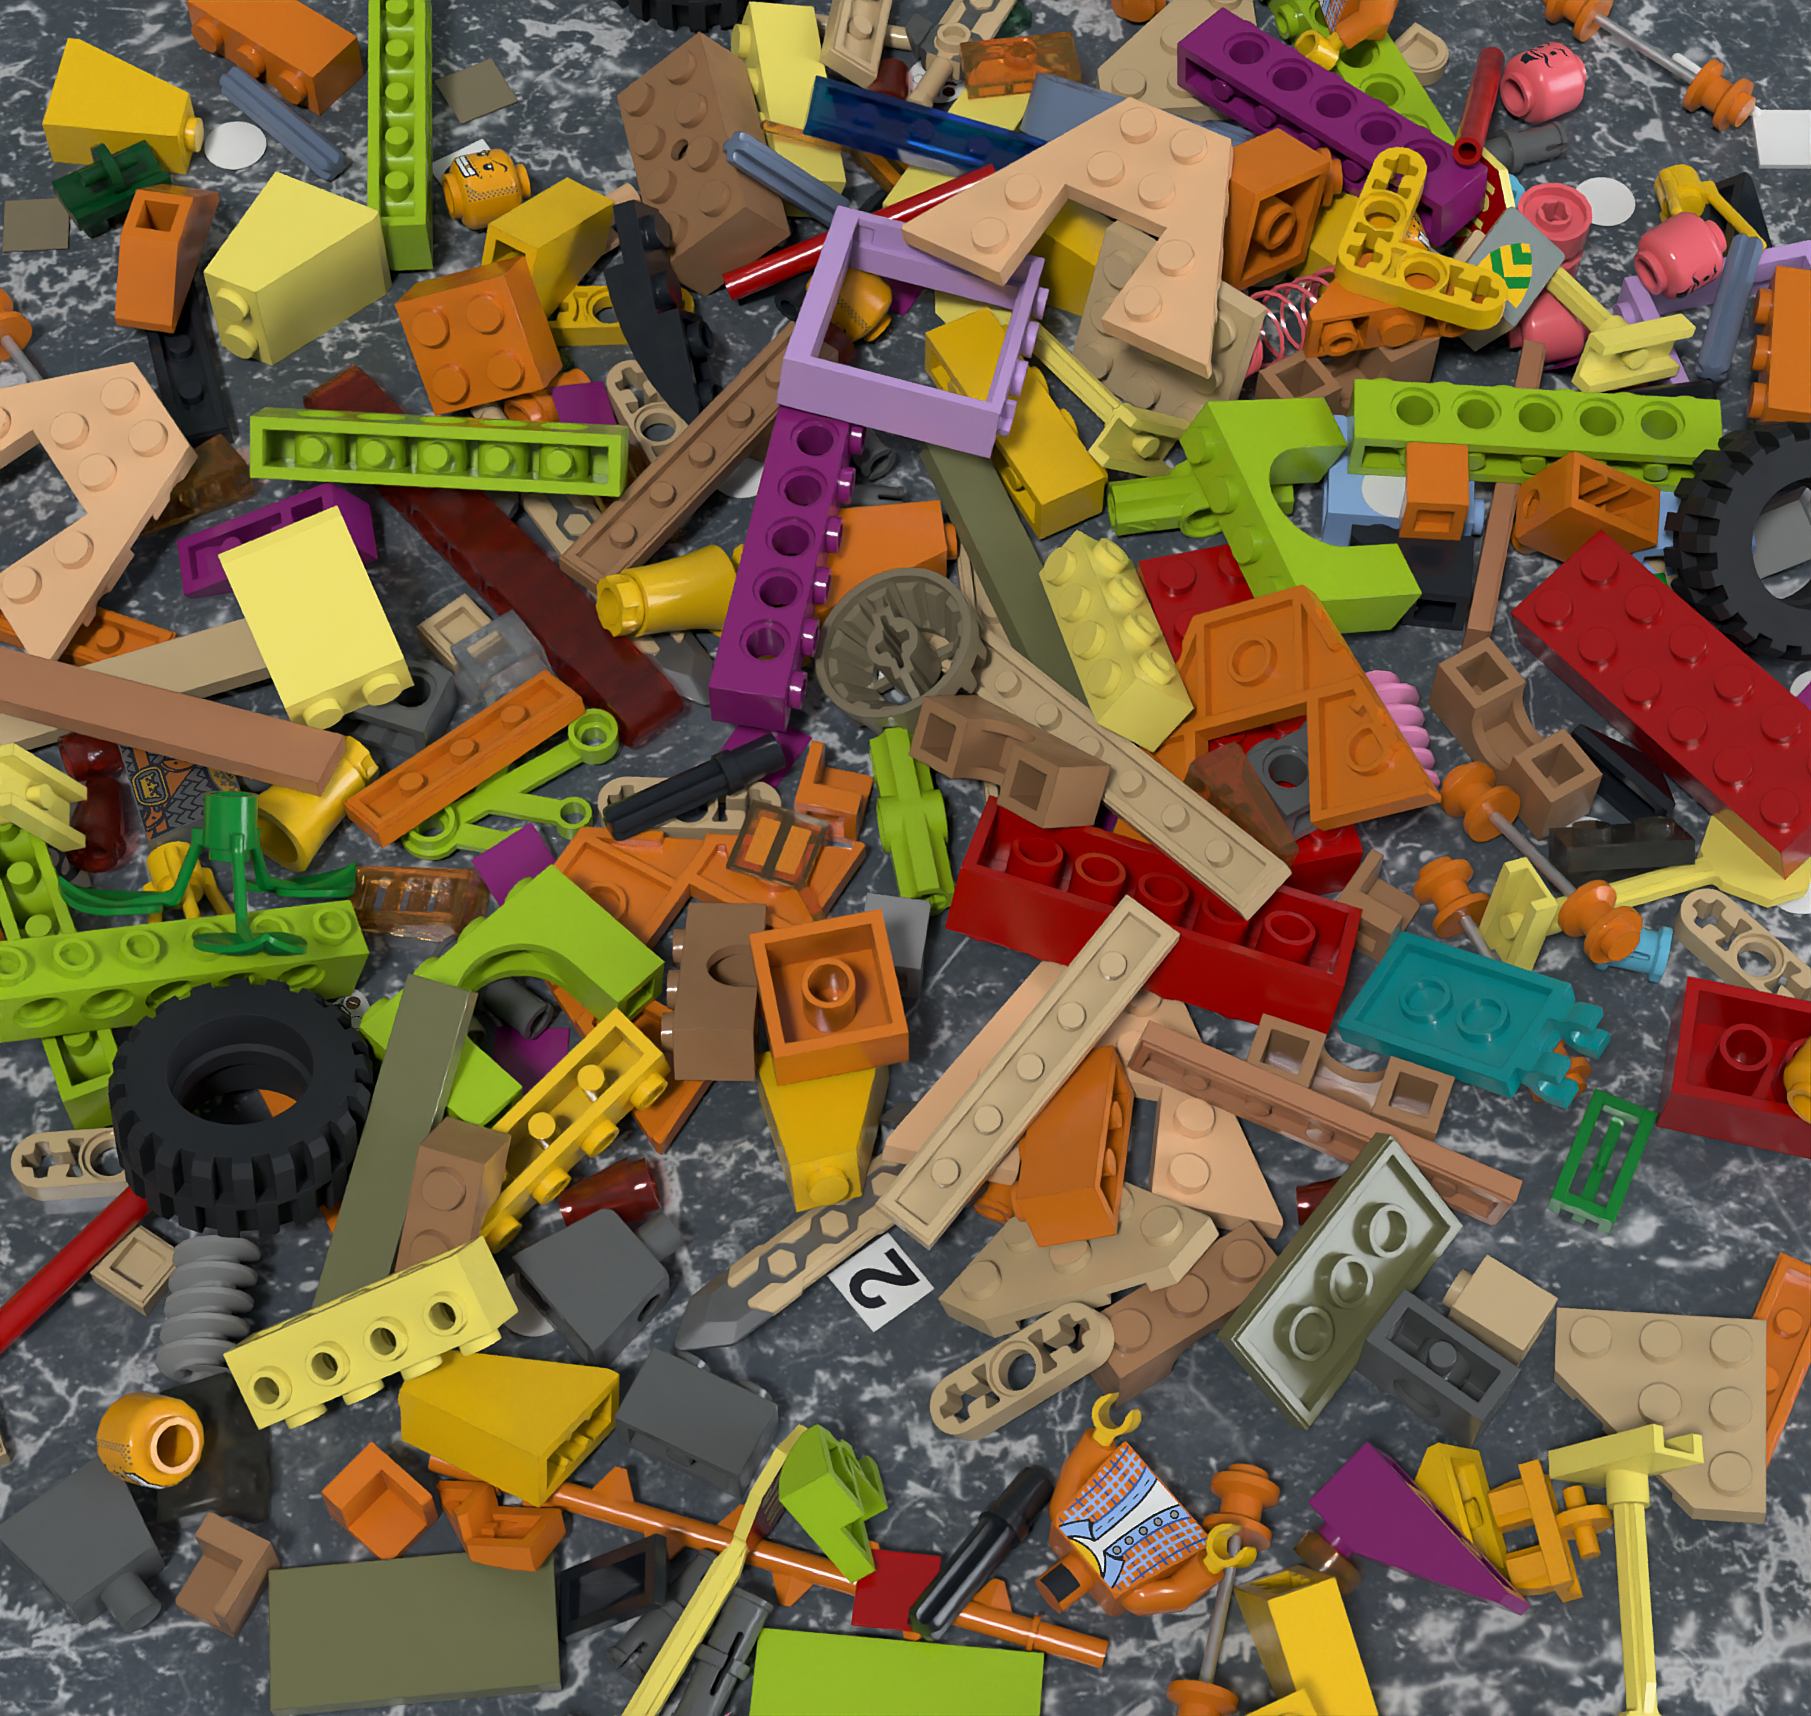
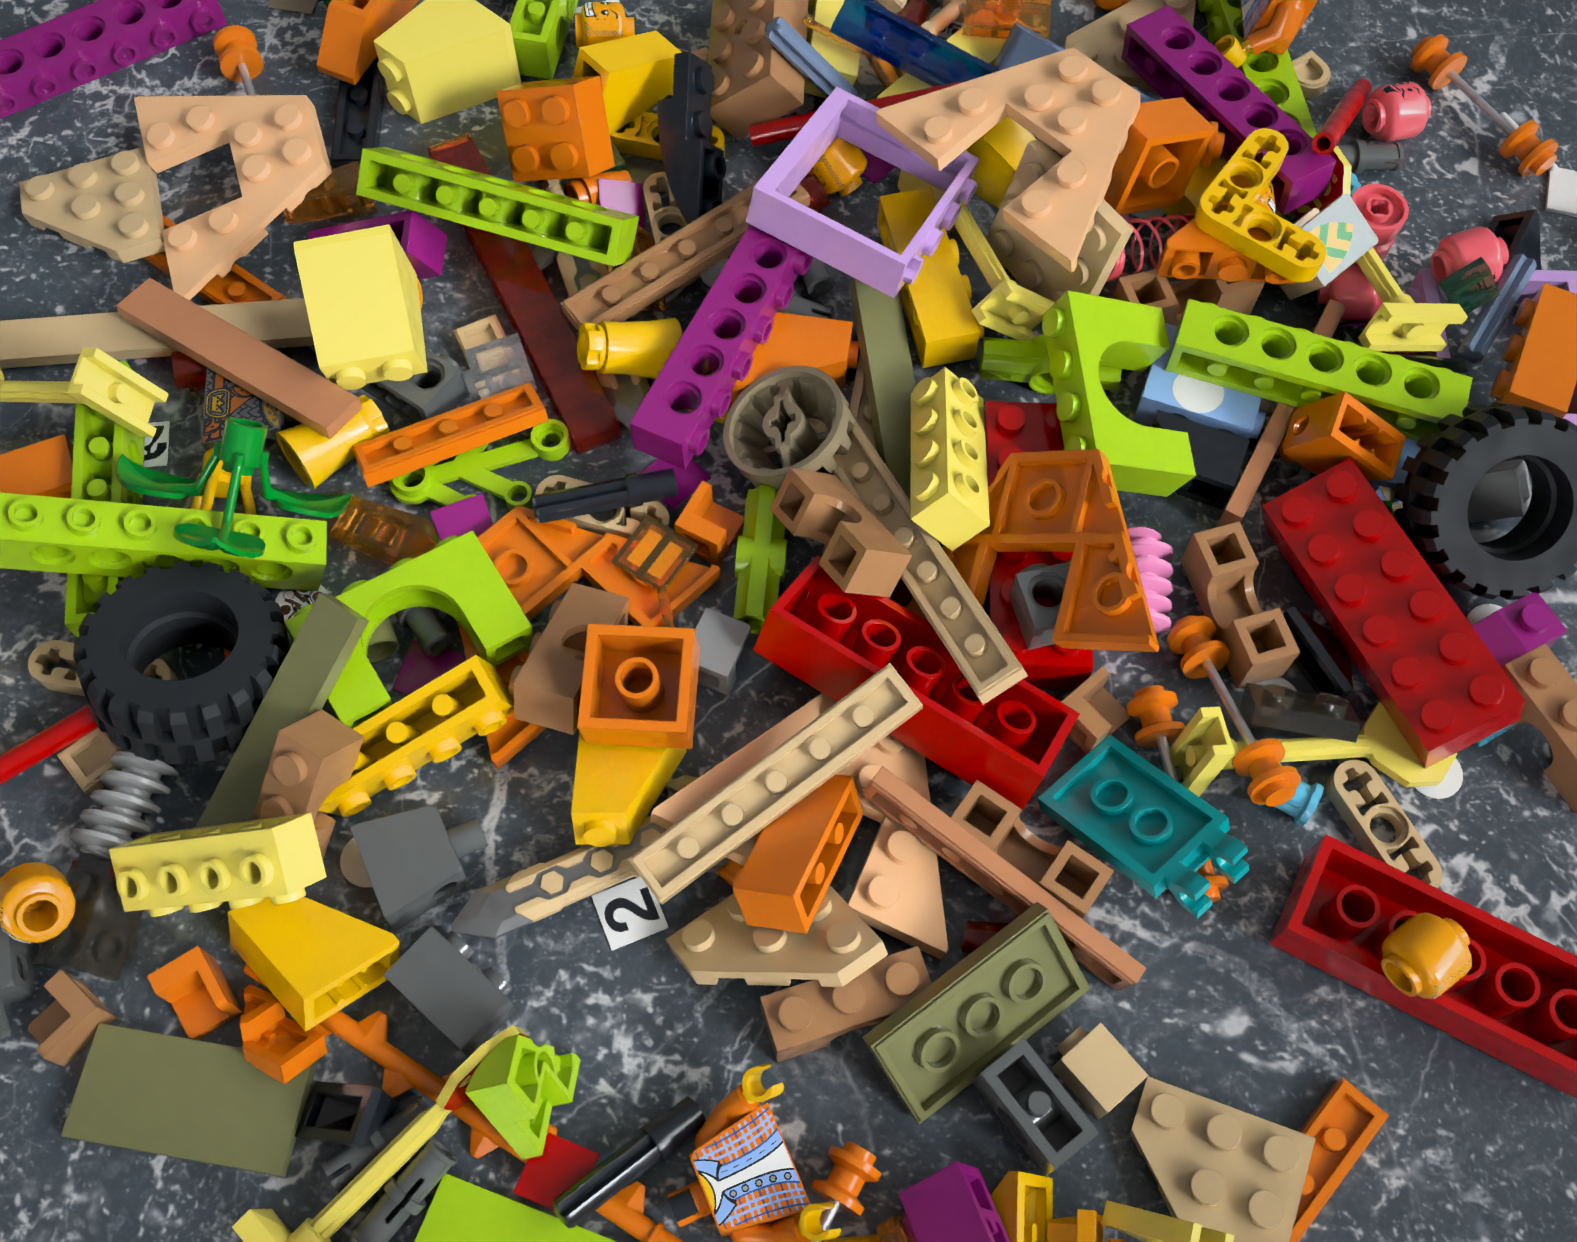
camera: 15 degrees right, 5 degrees up
(102, 823) = (179, 423): clear red cone -> none
(623, 1187) = (453, 792): clear red cone -> none
(991, 1369) = (726, 1029): tan beam -> none
(1234, 789) = (1001, 597): clear orange slope -> none
(1435, 491) = (1227, 398): orange panel -> none
(1583, 1205) = (1191, 995): green tile -> none
(1610, 200) = (1424, 210): white sticker -> none
(1681, 190) = (1483, 211): yellow plant -> none
(1689, 289) = (1469, 286): none -> clear green tile

